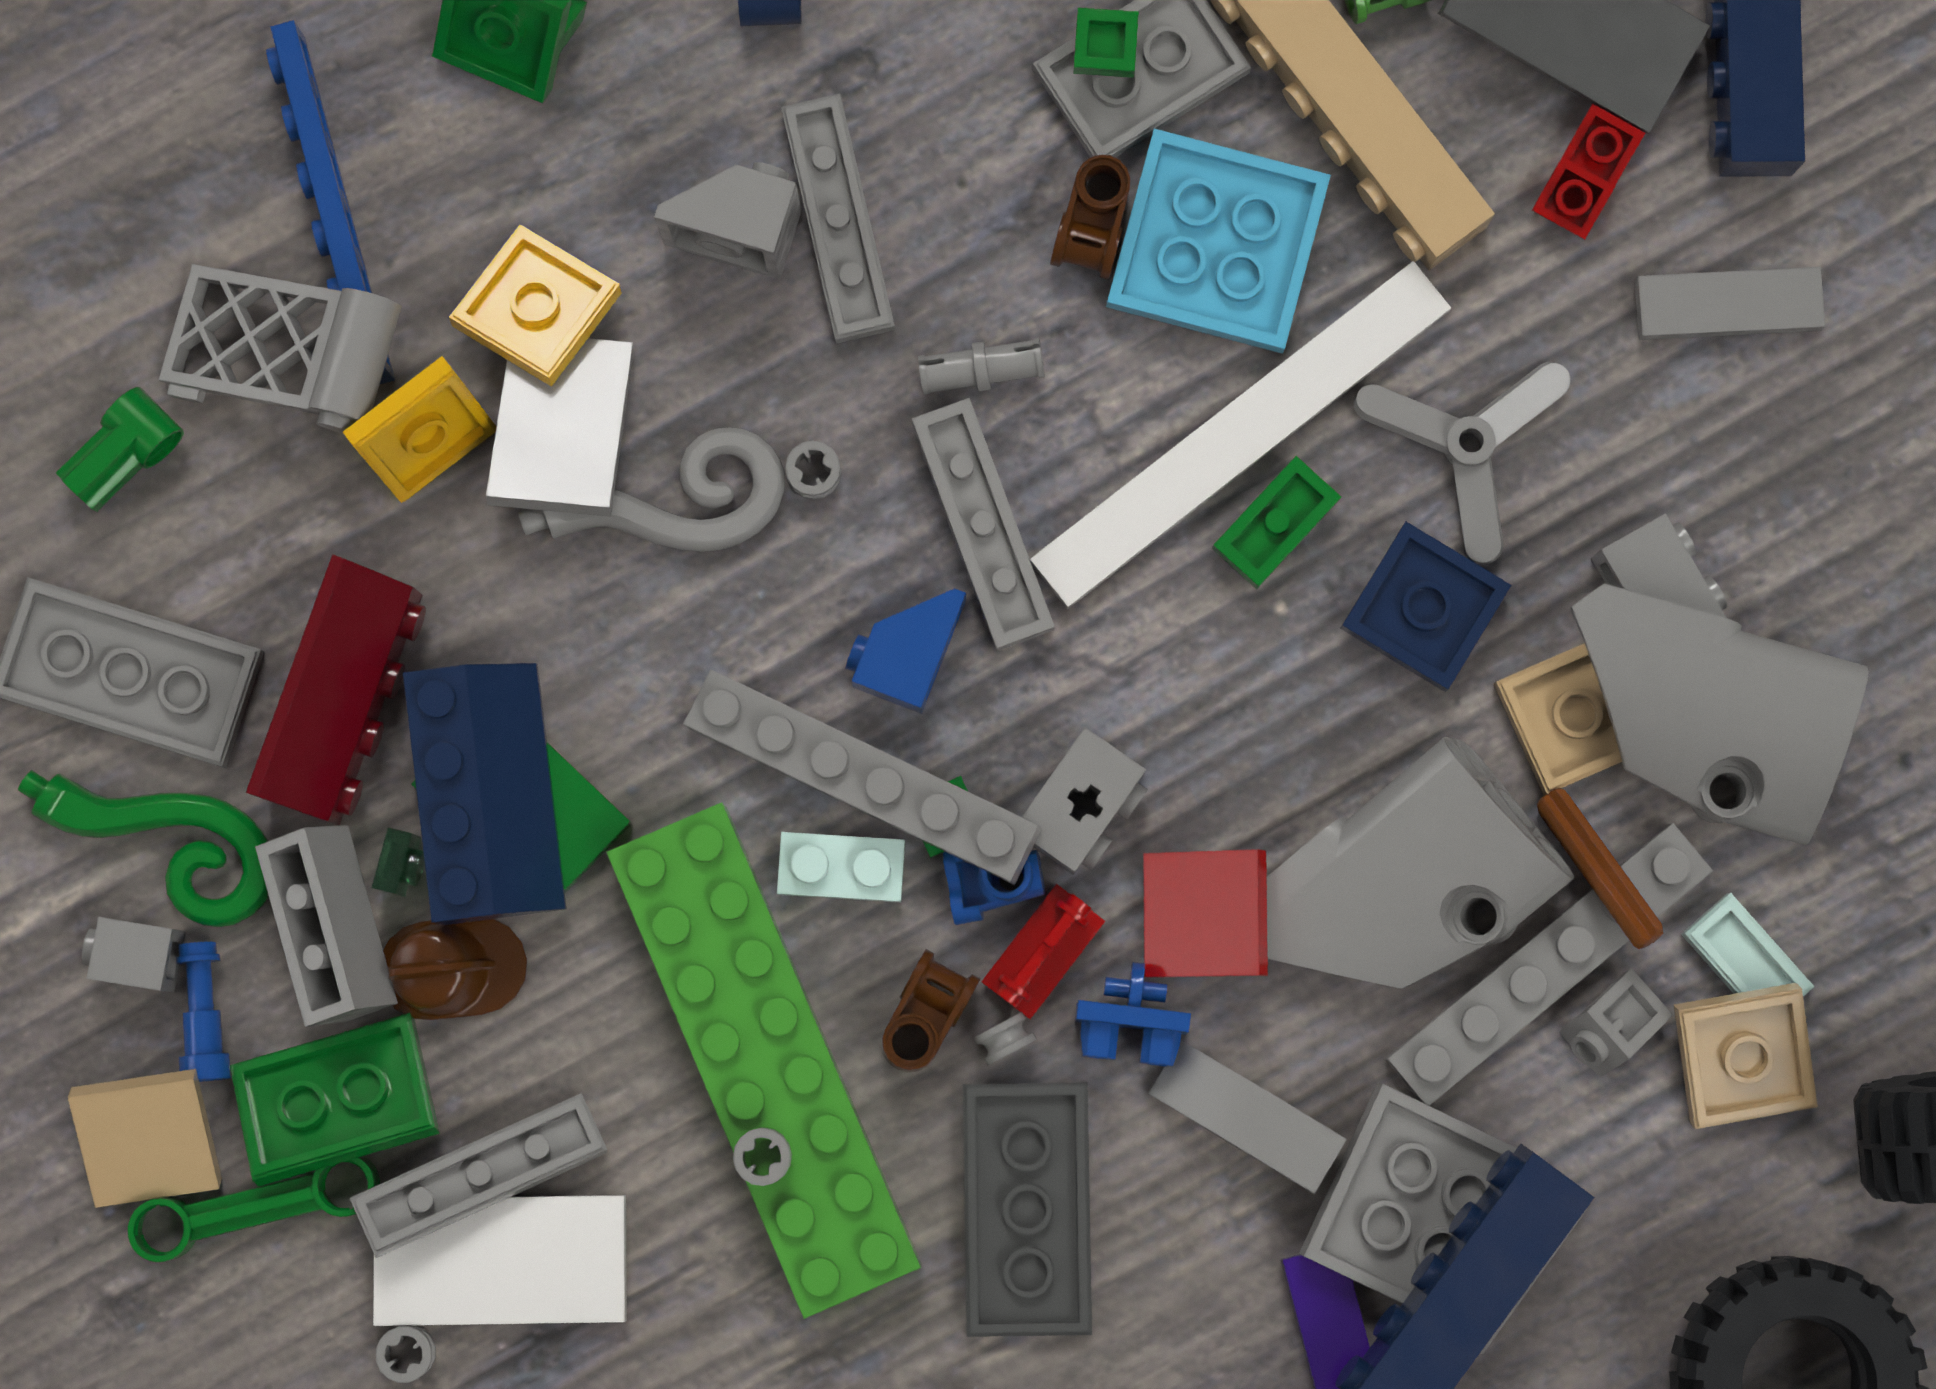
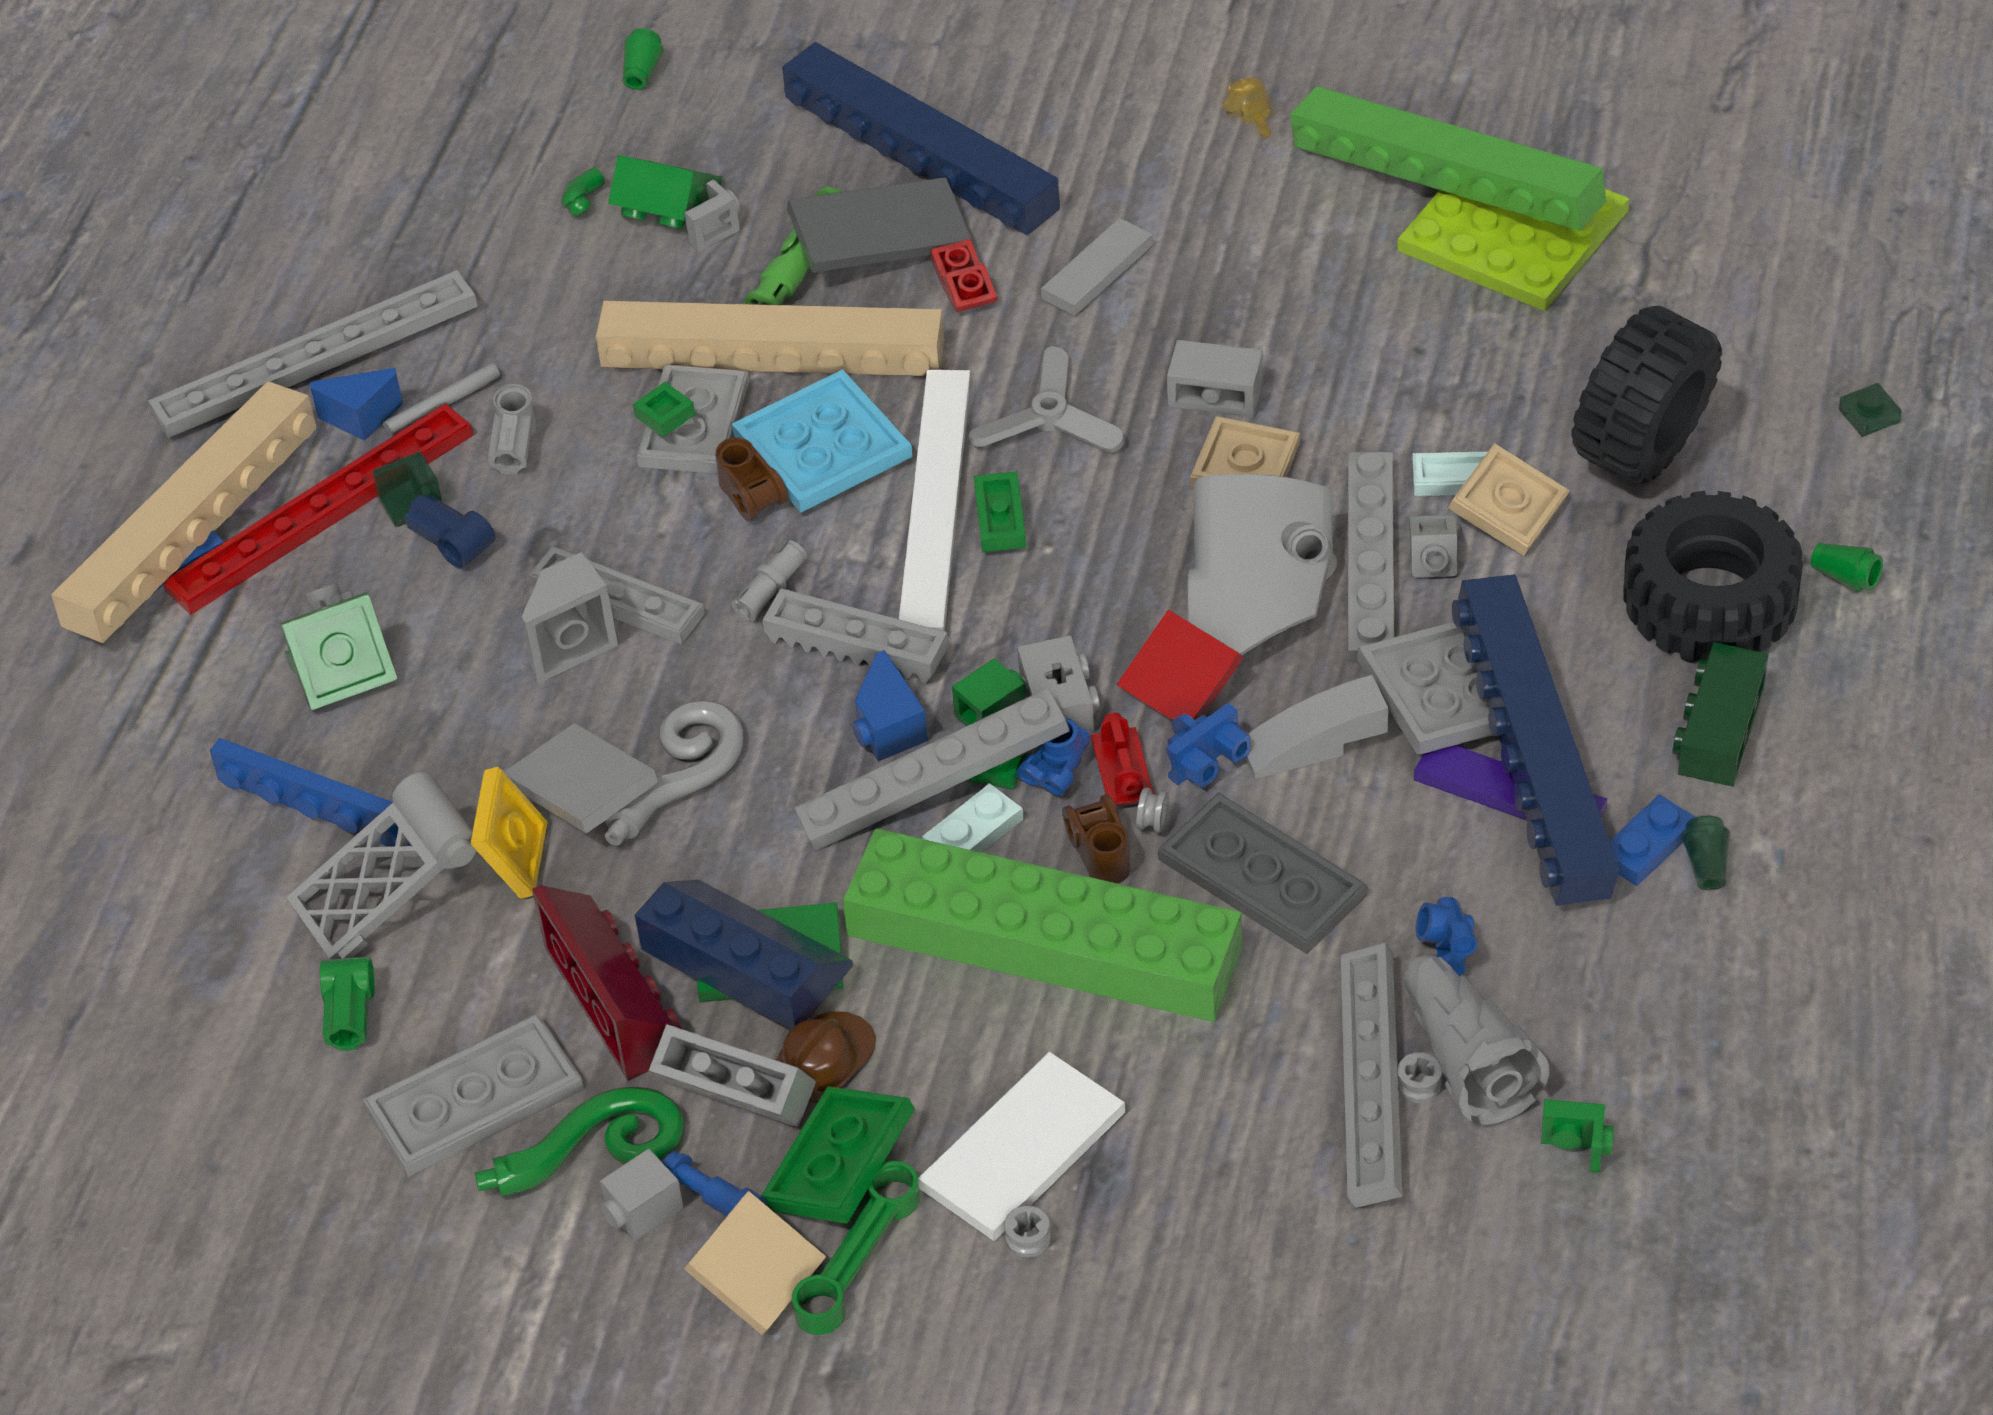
camera: 45 degrees left, 35 degrees down
(399, 863) = (735, 1023): clear green plate -> none
(478, 1175) = (960, 1110): light grey tile -> none
(535, 305) = (510, 740): tile -> none
(748, 1143) = (1093, 916): light grey bush -> none
(830, 464) = (747, 686): light grey bush -> none
(1012, 744) = (986, 692): none -> green brick
(1425, 606) = (1116, 479): dark blue plate -> none
(1600, 868) = (1362, 483): dark orange axle -> none
(1715, 701) = (1313, 376): light grey panel -> none

